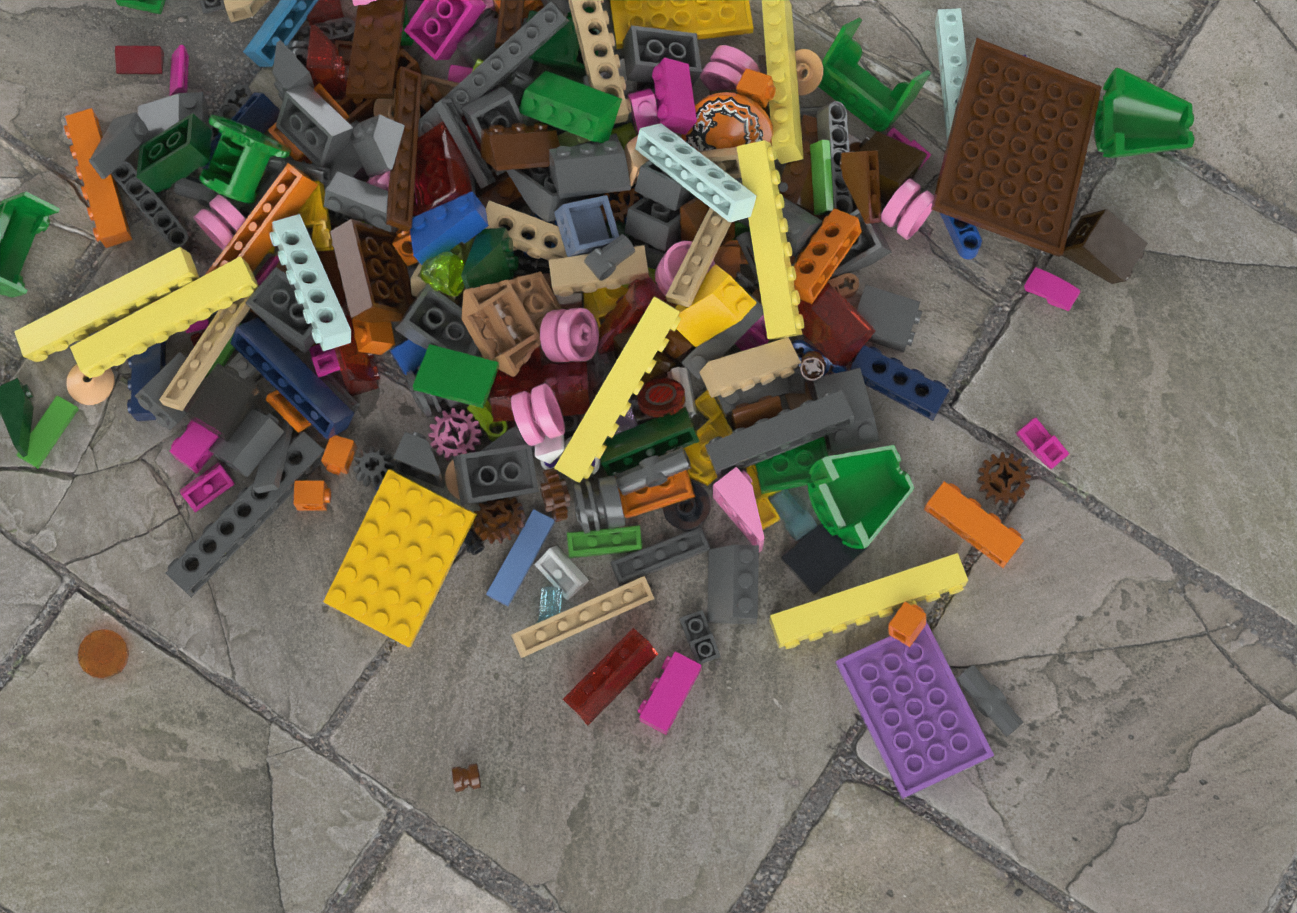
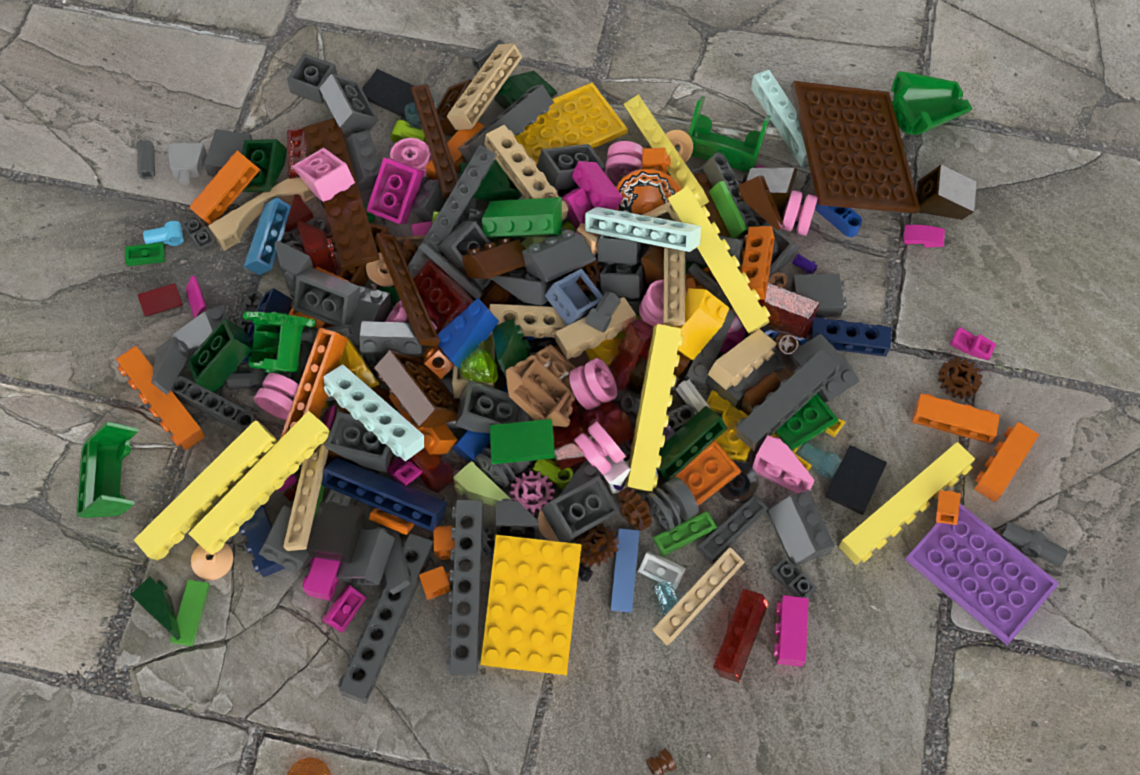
camera: 25 degrees left, 10 degrees down
(312, 597) = (469, 665): none -> dark grey brick
(377, 143) = (385, 291): dark grey slope -> none
(399, 405) = (478, 486): none -> yellowish green slope
(653, 471) = (704, 462): dark grey piece -> none
(661, 397) = (685, 405): tile -> none
(858, 493) = (863, 425): green cone -> none
(890, 275) = (805, 264): none -> dark purple pin
(1006, 596) = (1006, 461): none -> orange brick

